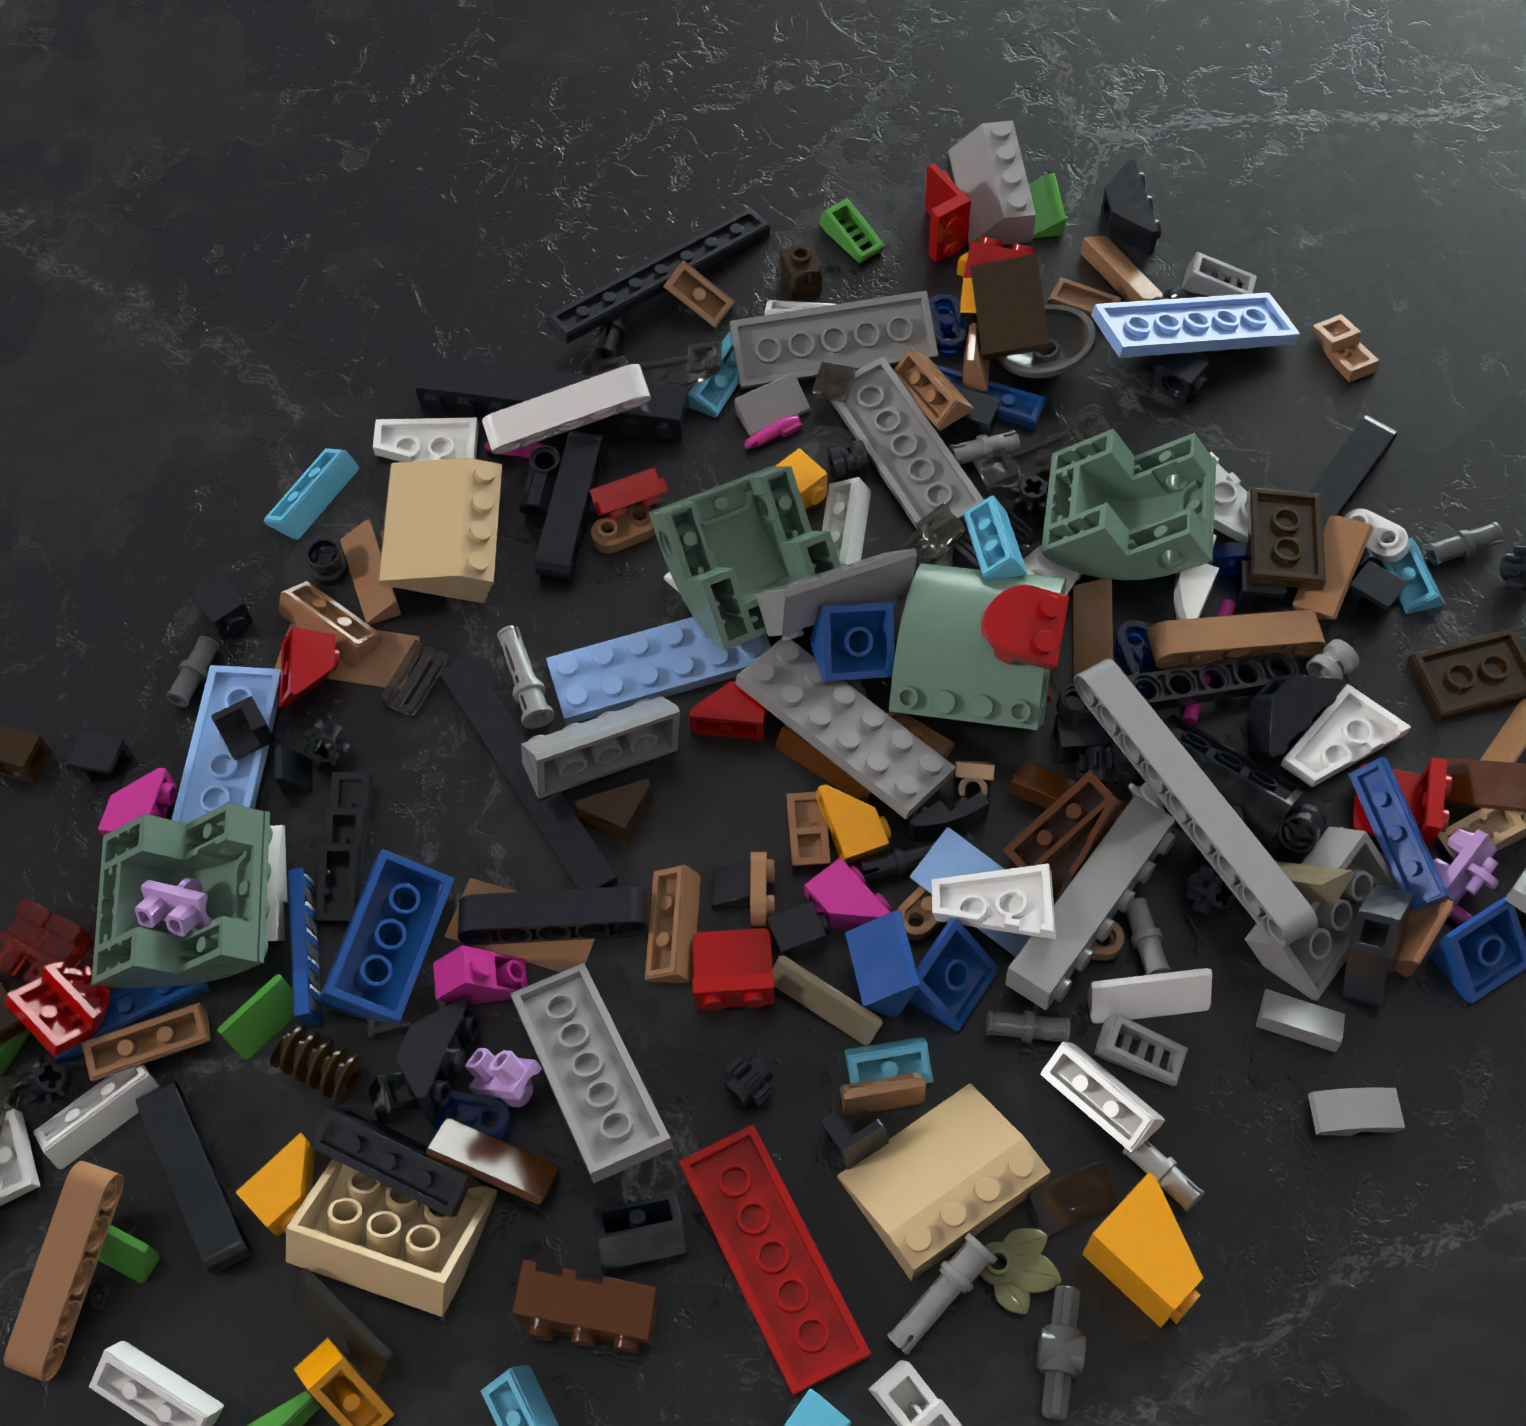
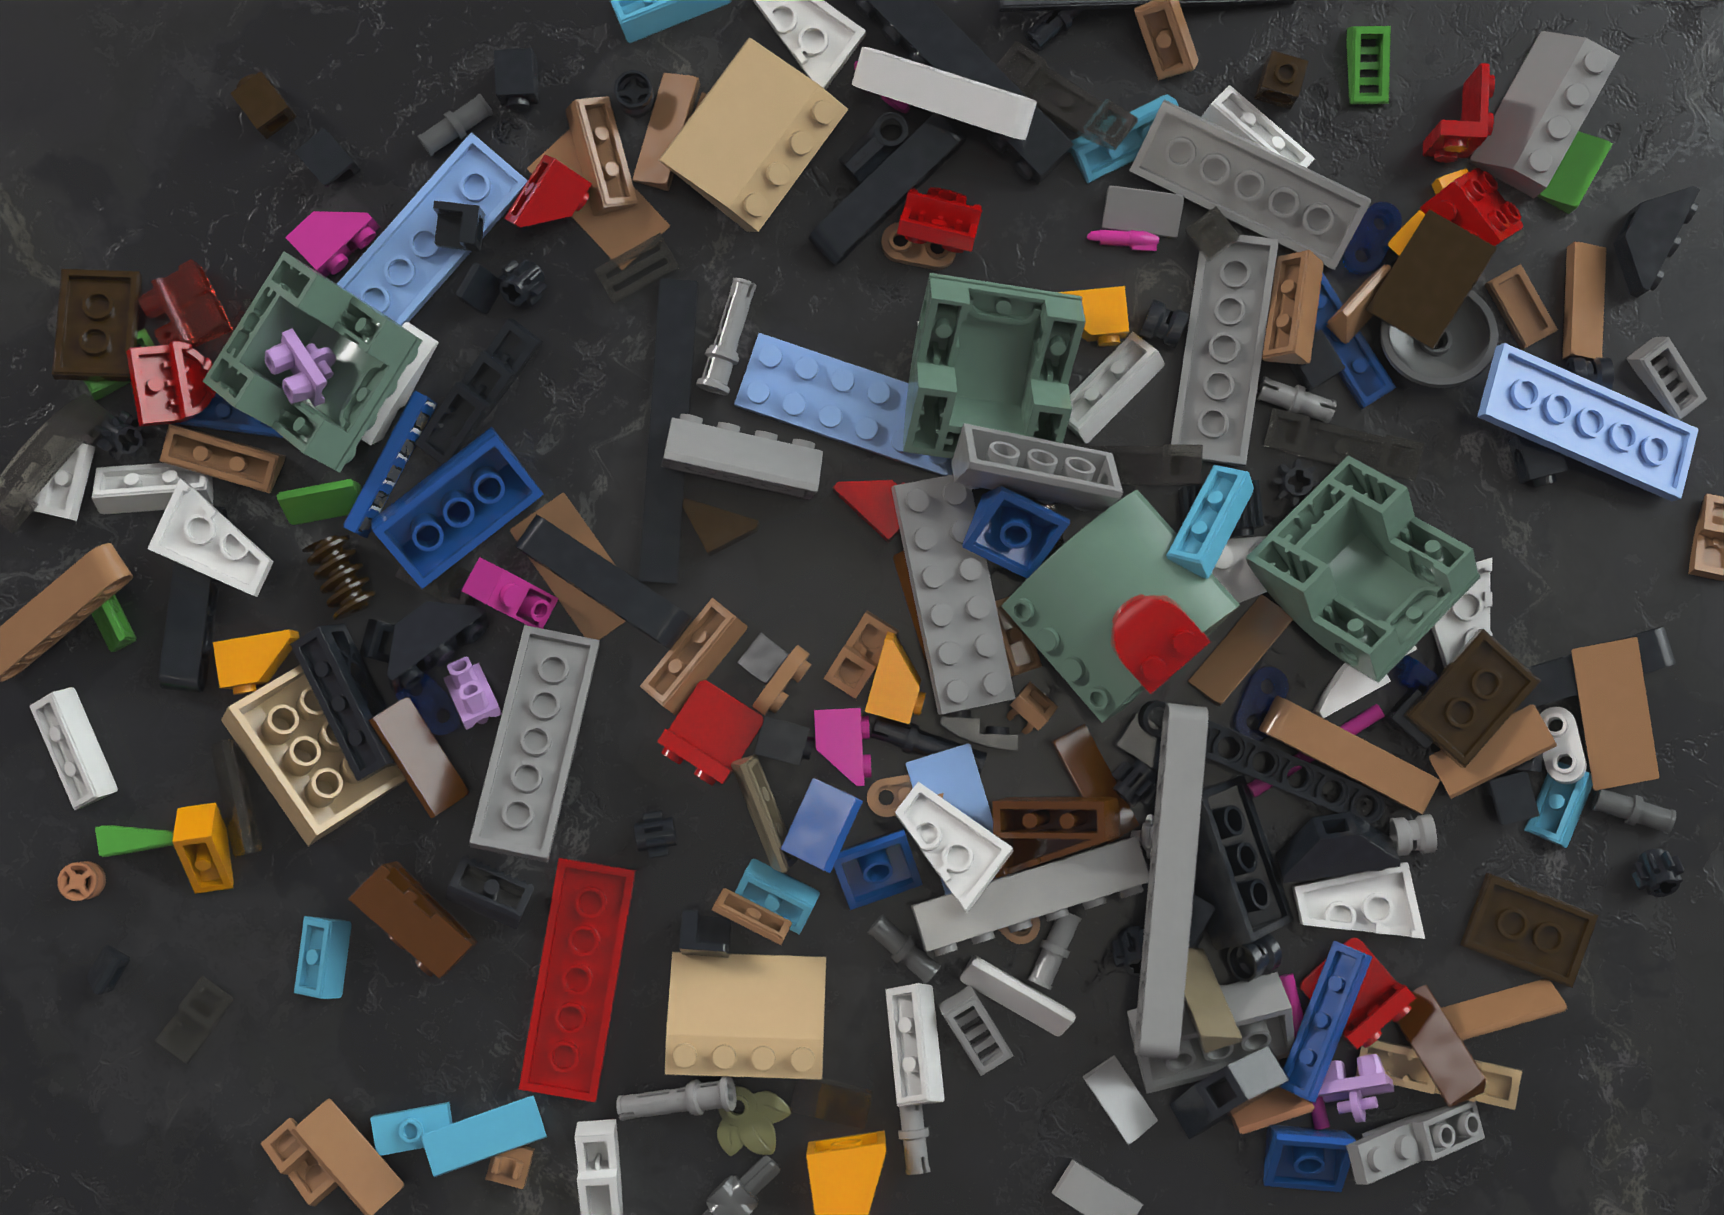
camera: 35 degrees right, 25 degrees up
(177, 1107) = (208, 542): none -> white wing
(1391, 486) = (1615, 713): none -> medium nougat sticker

